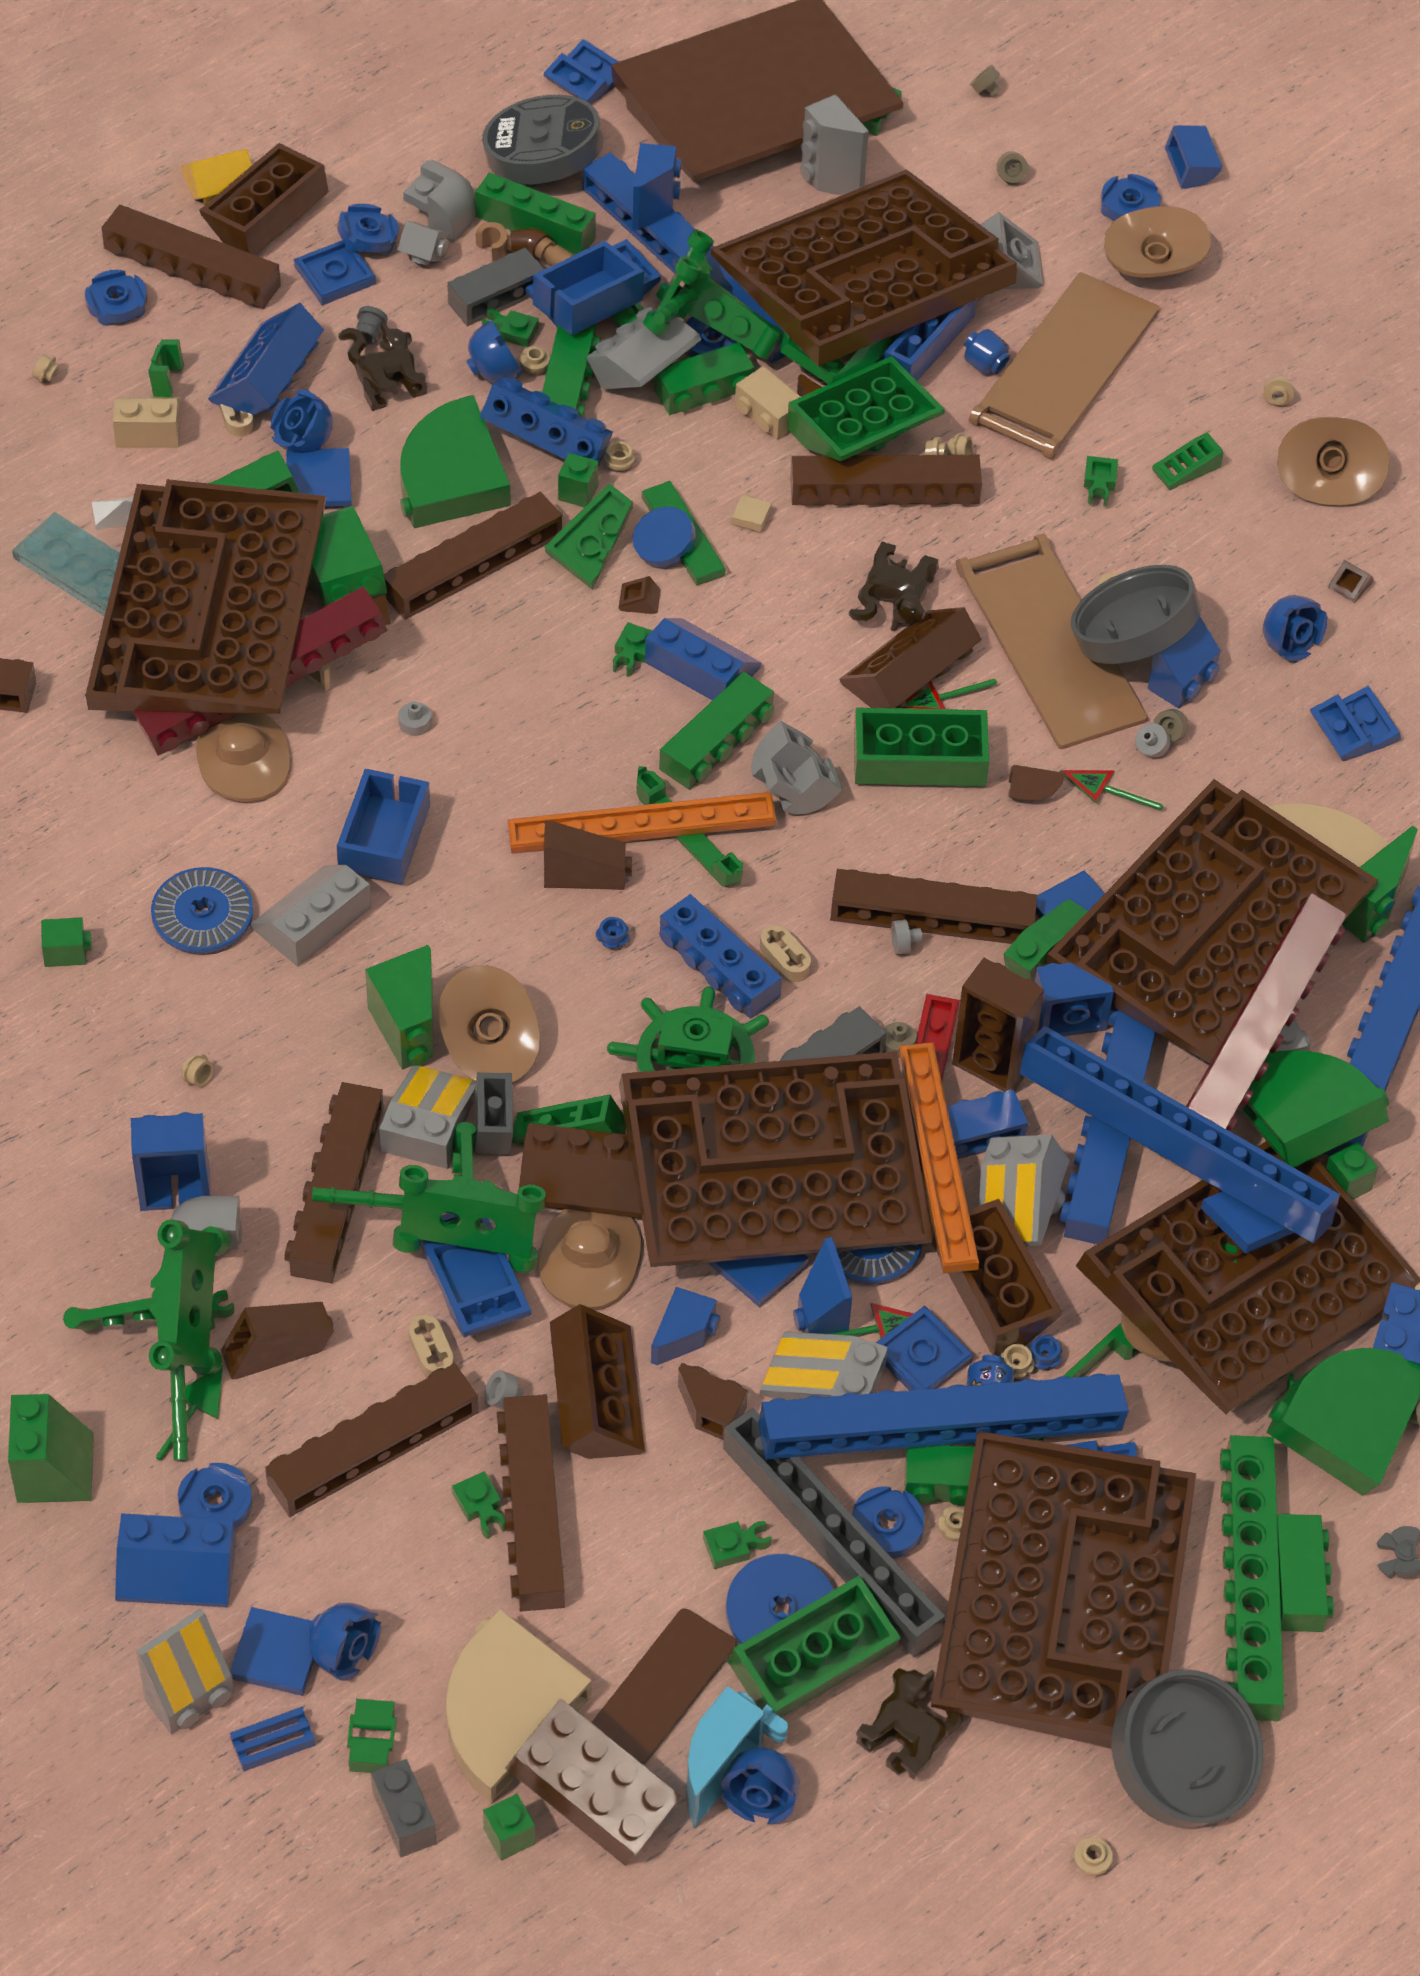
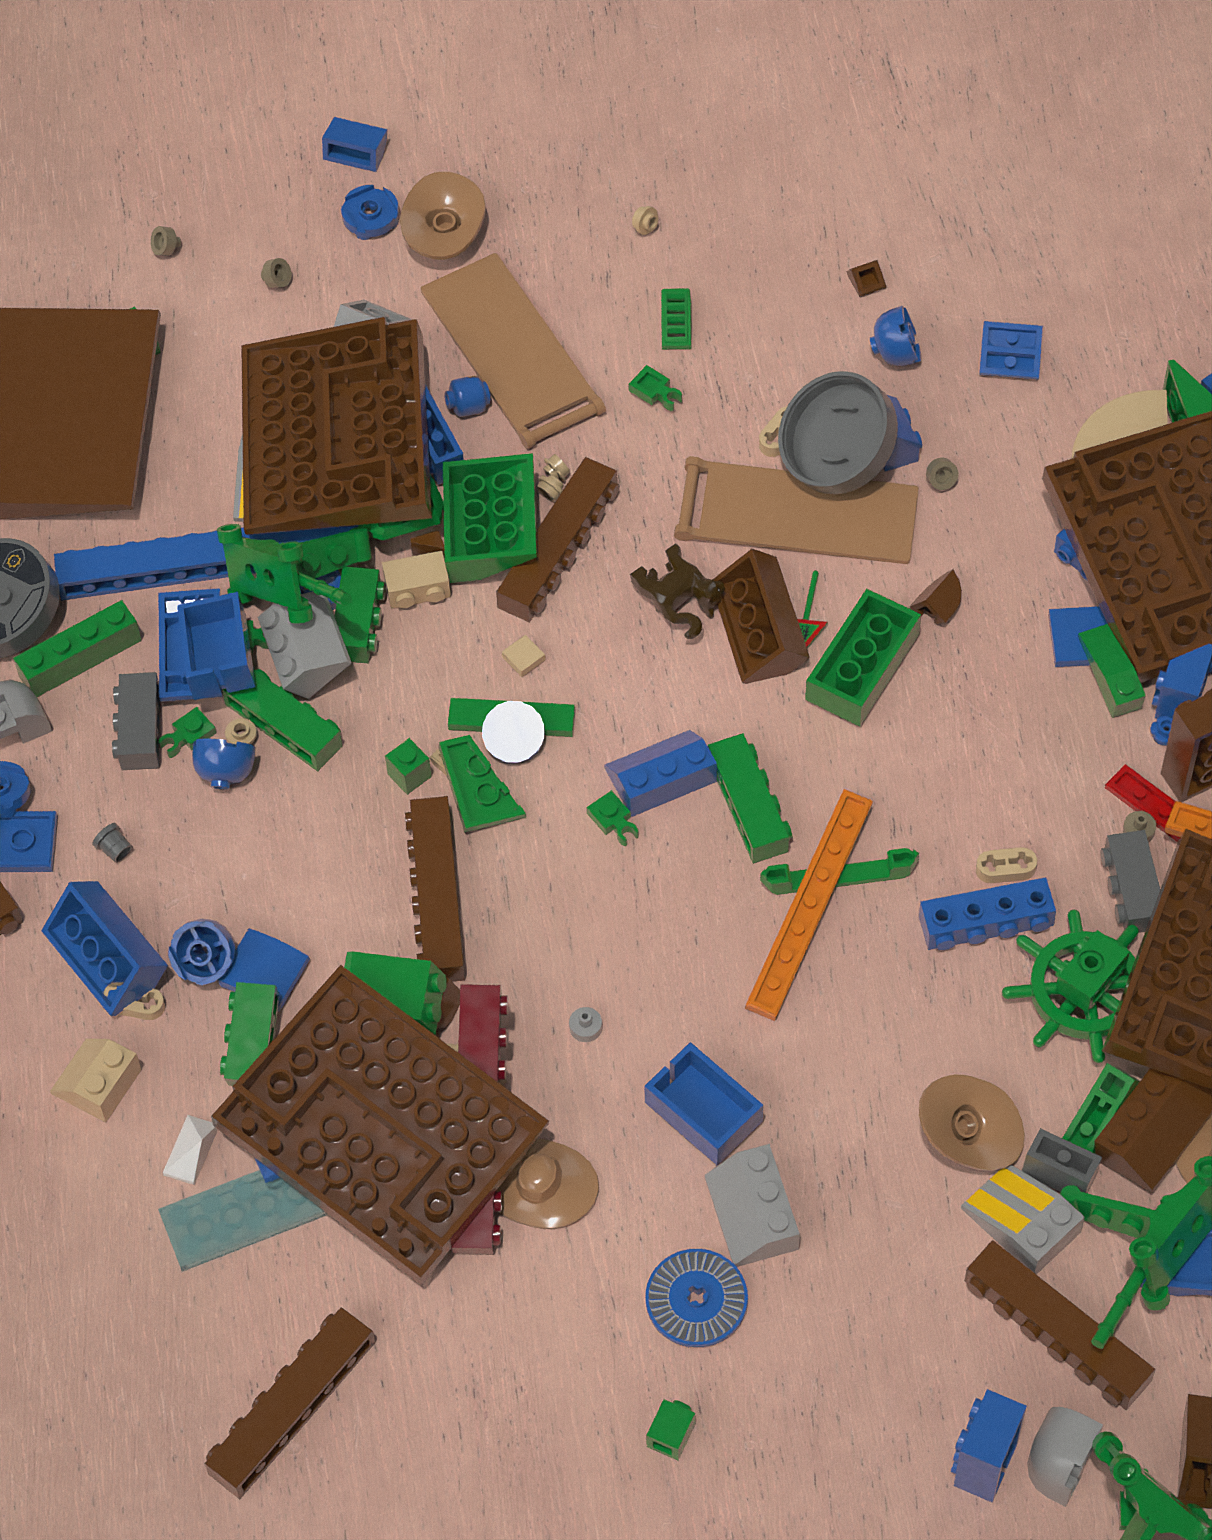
camera: 55 degrees left, 5 degrees up
(165, 358) = (67, 1043): green piece -> none
(197, 1070) = (874, 1383): tan plate -> none
(382, 370) = (173, 859): dark brown animal -> none
(403, 1004) = (917, 1178): green slope -> none
(423, 243) = (49, 752): light grey brick -> none
(451, 466) = (323, 856): green brick -> none
(533, 239) = (105, 670): medium nougat piece -> none
(544, 422) = (336, 757): blue brick -> none
(583, 859) = (830, 967): reddish brown slope -> none
(609, 926) = (912, 975): blue plate -> none
(619, 456) = (395, 715): tan plate -> none
(640, 596) = (558, 785): reddish brown slope -> none
(655, 183) = (133, 535): blue slope -> none
(794, 770) = (834, 760): light grey brick -> none
(833, 147) = (184, 383): light grey slope -> none
(903, 936) = (1043, 770): light grey tile -> none
(932, 906) = (1025, 733): reddish brown brick -> none
(1095, 782) = (961, 559): piece -> none
(1153, 740) = (941, 496): light grey tile -> none
(1333, 461) = (752, 221): medium nougat hat -> none

